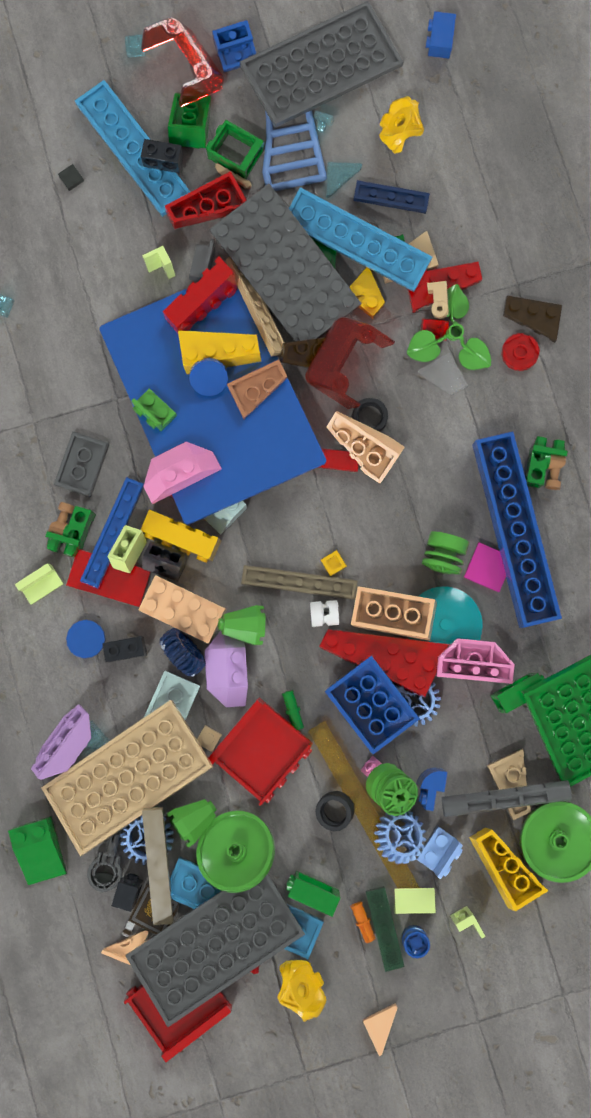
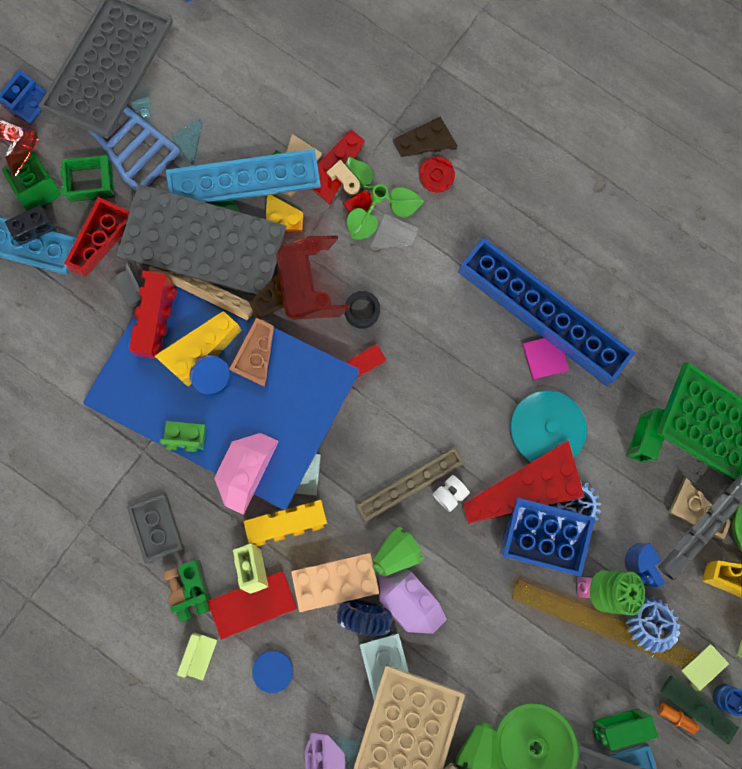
camera: 50 degrees left, 5 degrees down
(116, 521) = (224, 560): blue tile -> none
(124, 649) = (312, 654): black brick -> none
(157, 259) = (91, 310): yellowish green panel -> none
(164, 560) = (288, 553): black brick -> none
(209, 738) = (439, 670): tan plate -> none
(241, 181) = (115, 200): tan piece -> none
(261, 751) = (490, 646): red panel -> none
(293, 709) = (488, 592): green pin -> none
(328, 823) = (586, 661): black tyre -> none
(333, 563) = (425, 447): yellow tile -> none
(369, 447) = (382, 334): light nougat wedge -> none
(391, 197) = (243, 127): dark blue plate -> none
(394, 613) = (506, 449): light nougat brick -> none
(400, 123) = (206, 73): yellow piece -> none
(440, 852) = (693, 610): light blue bracket -> none
(445, 552) = (507, 371): bright green wheel -> none
(475, 661) = (598, 438): bright pink wedge -> none
(545, 458) = (520, 241): green hips -> none

